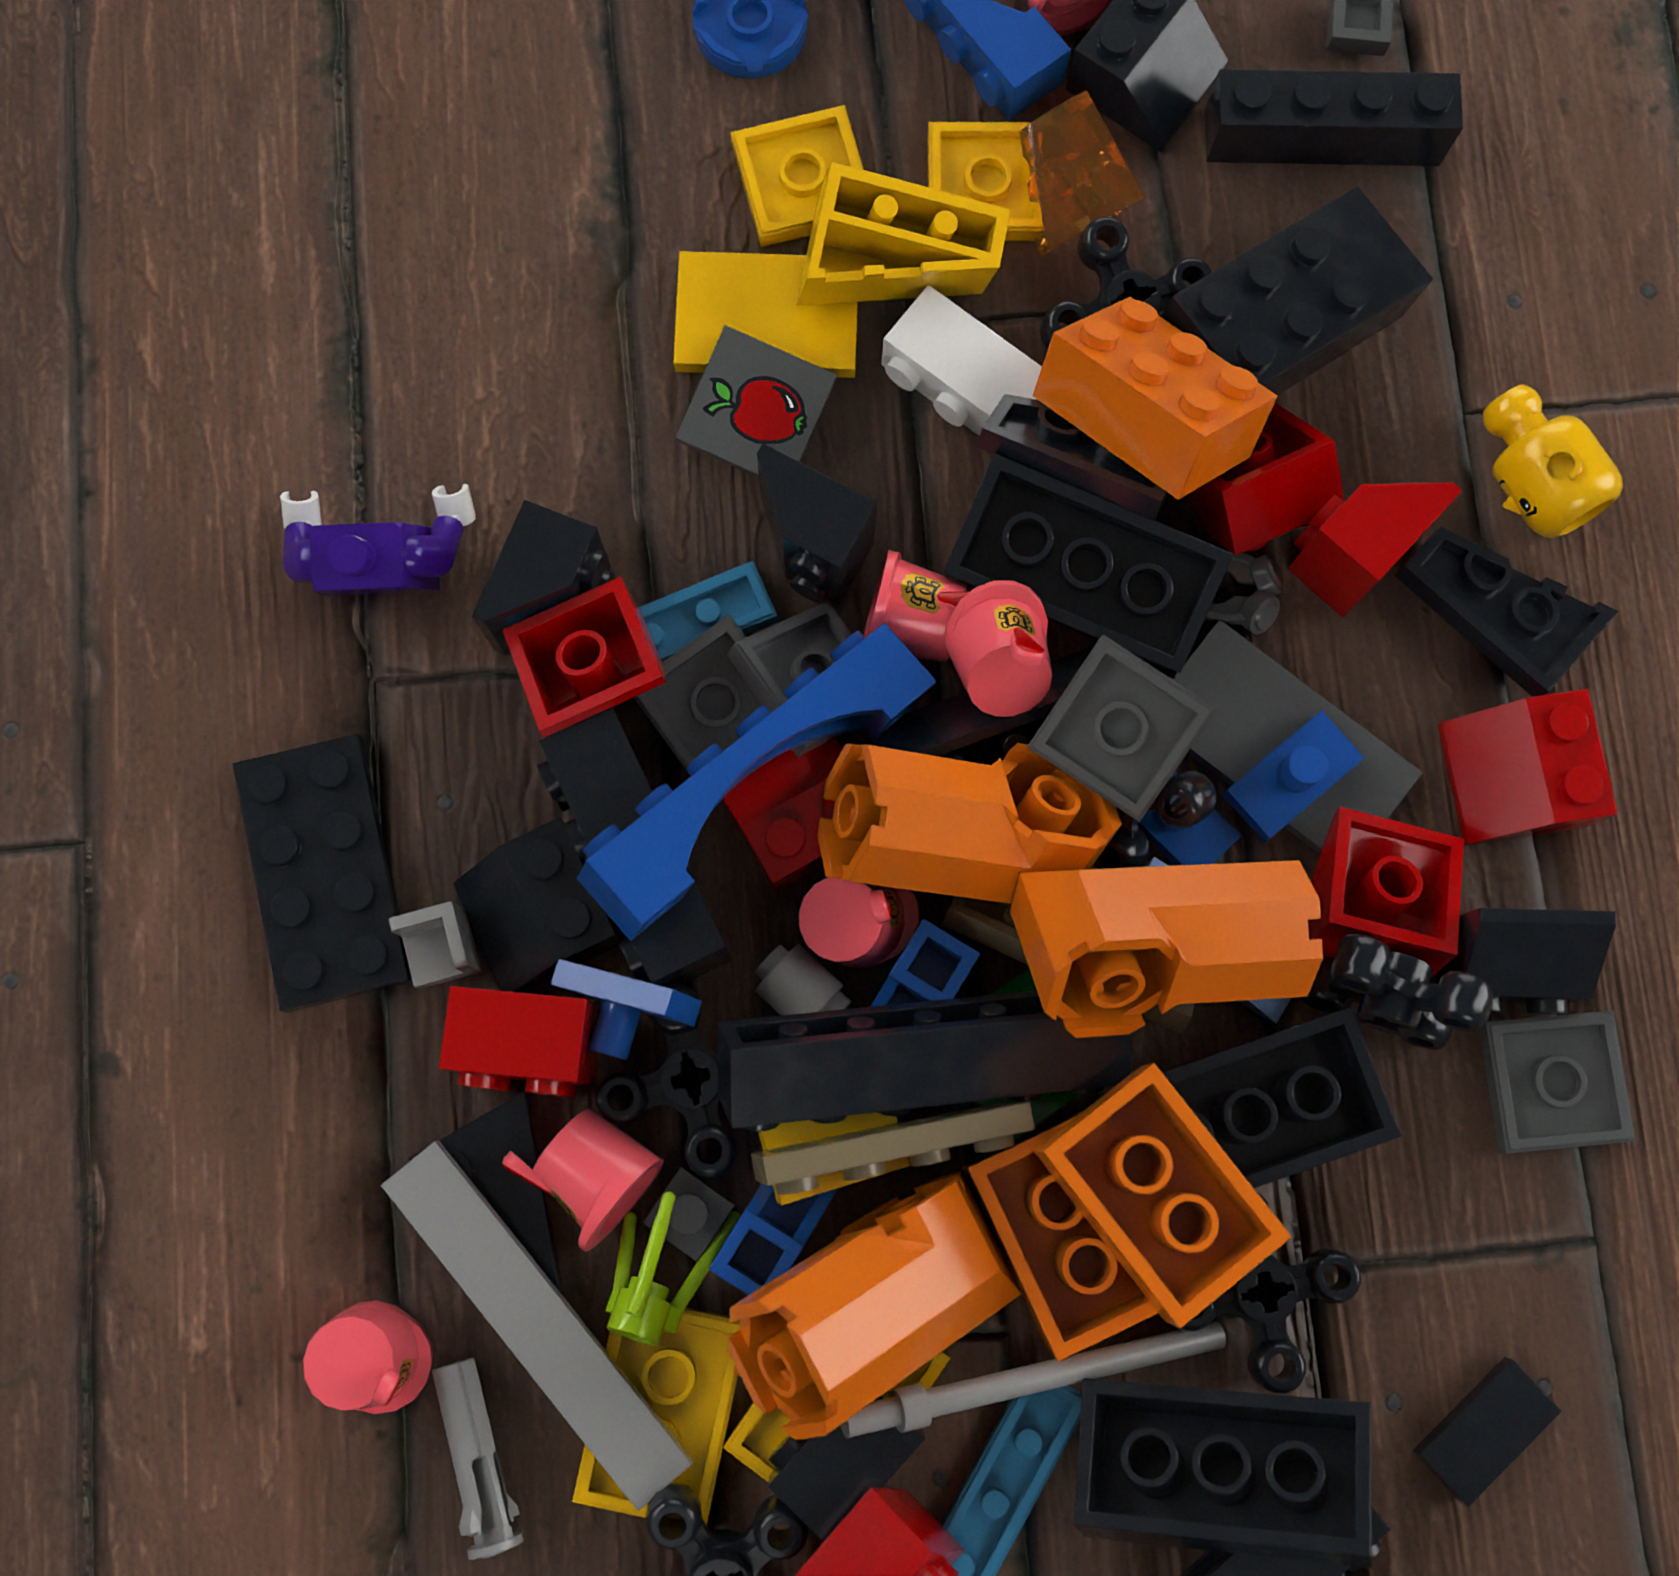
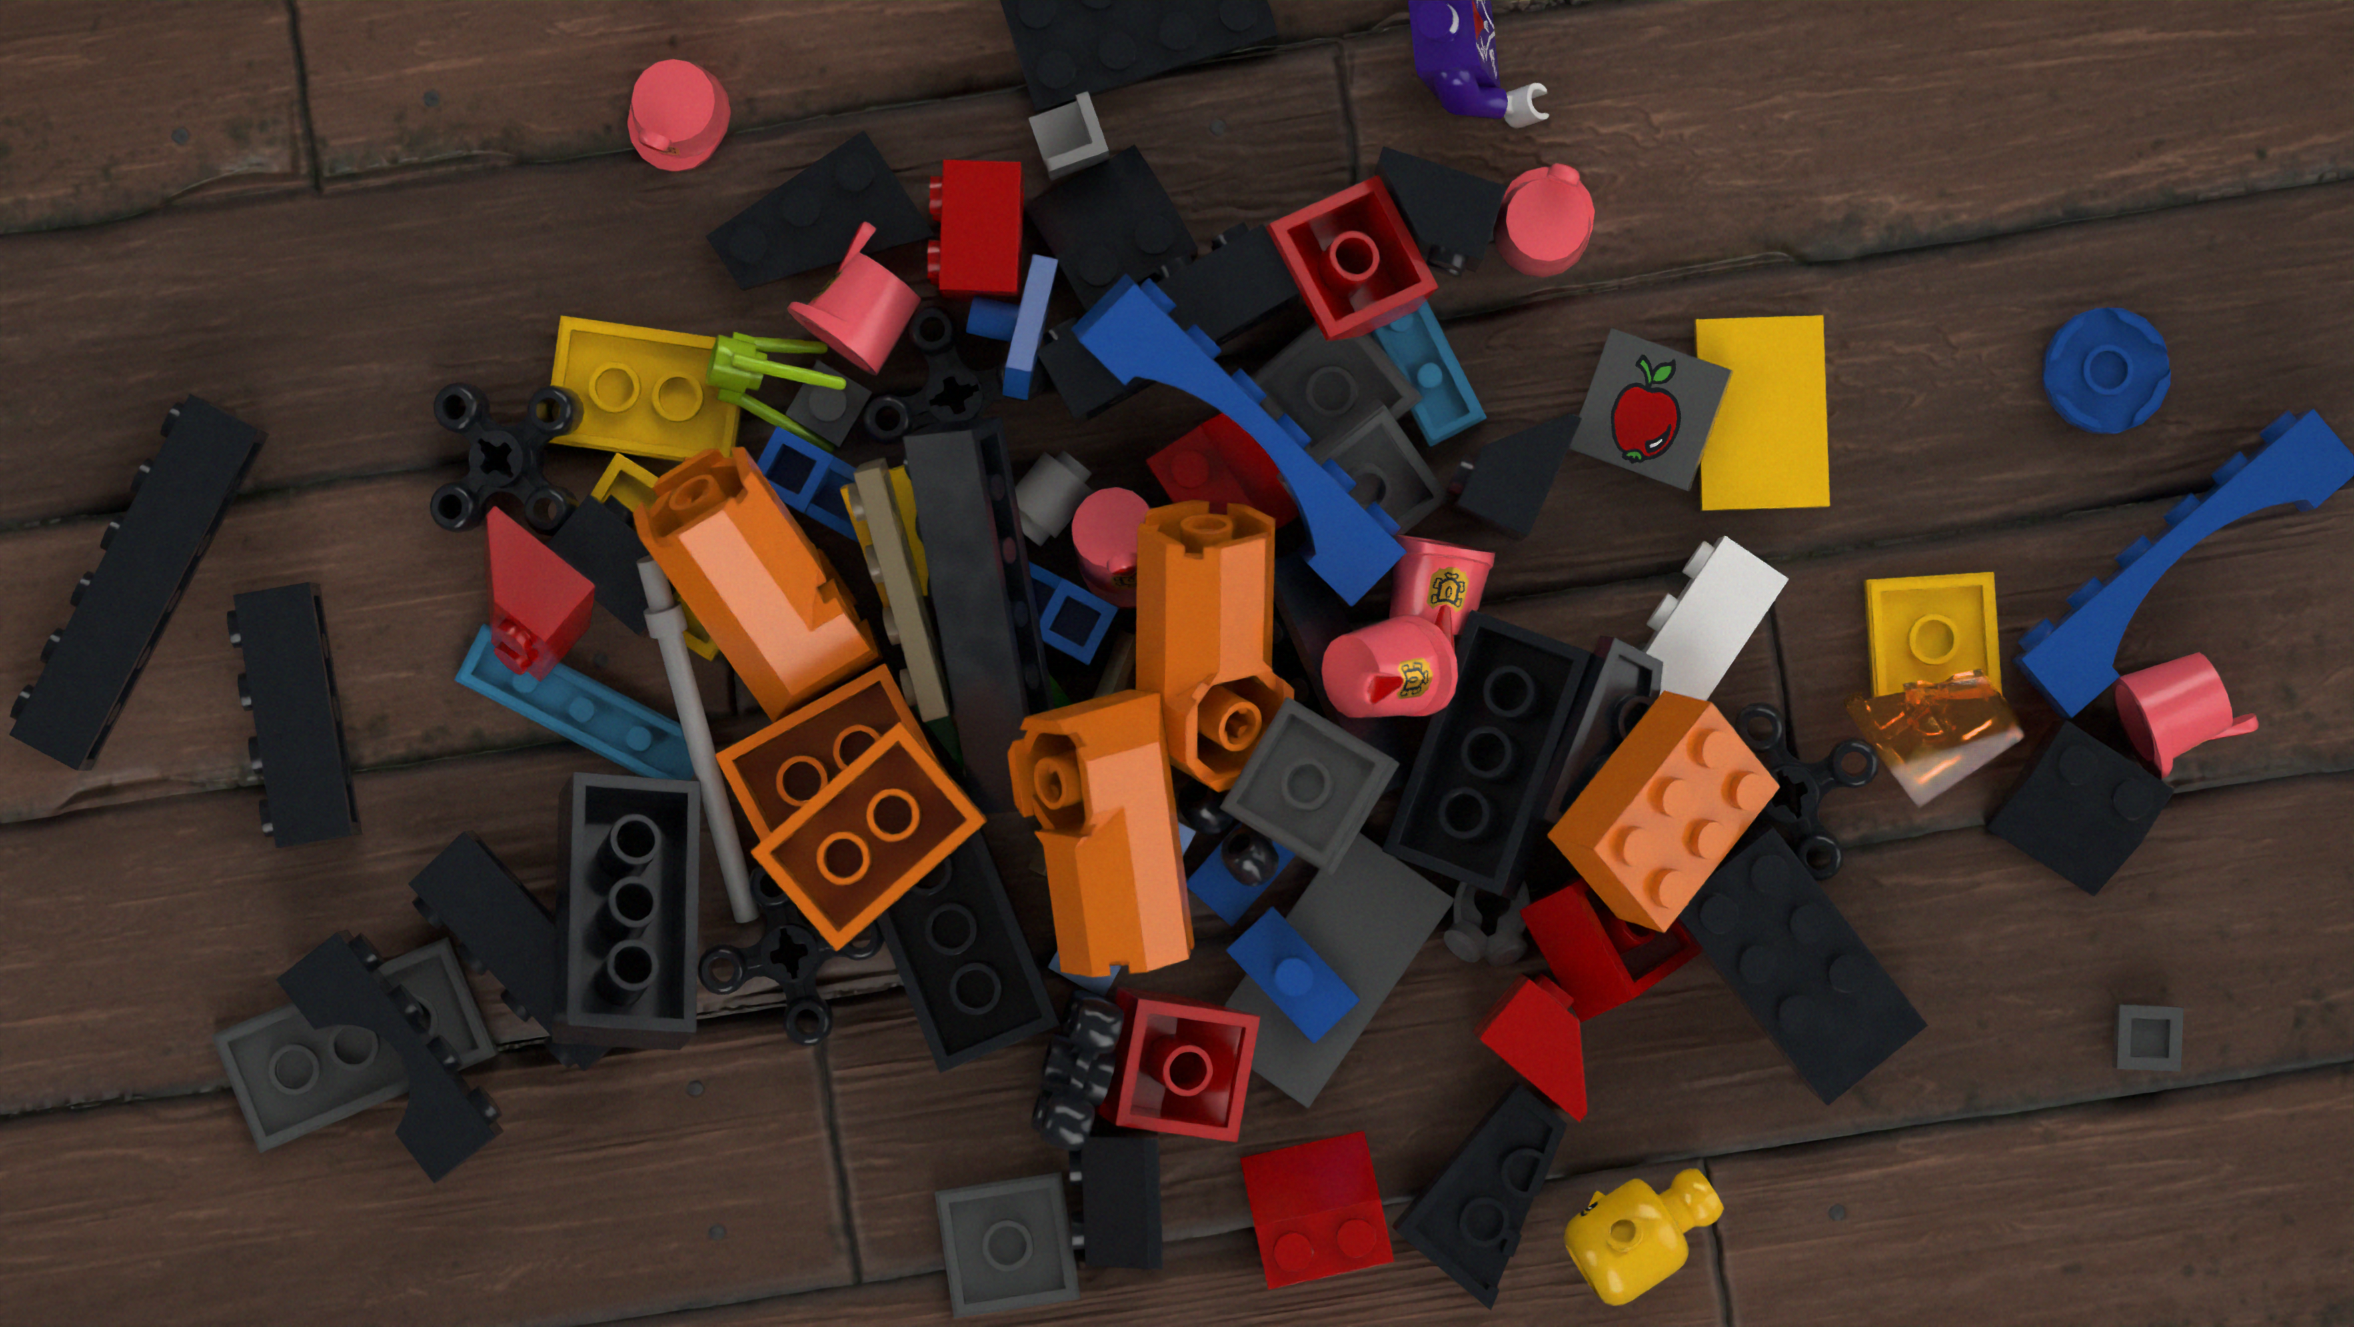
camera: 90 degrees right, 10 degrees up
(475, 1461) = (598, 220): light grey piece -> none
(537, 1324) = (720, 268): light grey tile -> none
(568, 479) = (1544, 221): none -> coral hat
(786, 167) = (1925, 440): yellow tile -> none
(895, 238) = (1833, 541): yellow wedge -> none
(1332, 117) = (2022, 1005): black brick -> none
(1486, 1431) = (674, 1173): black tile -> none

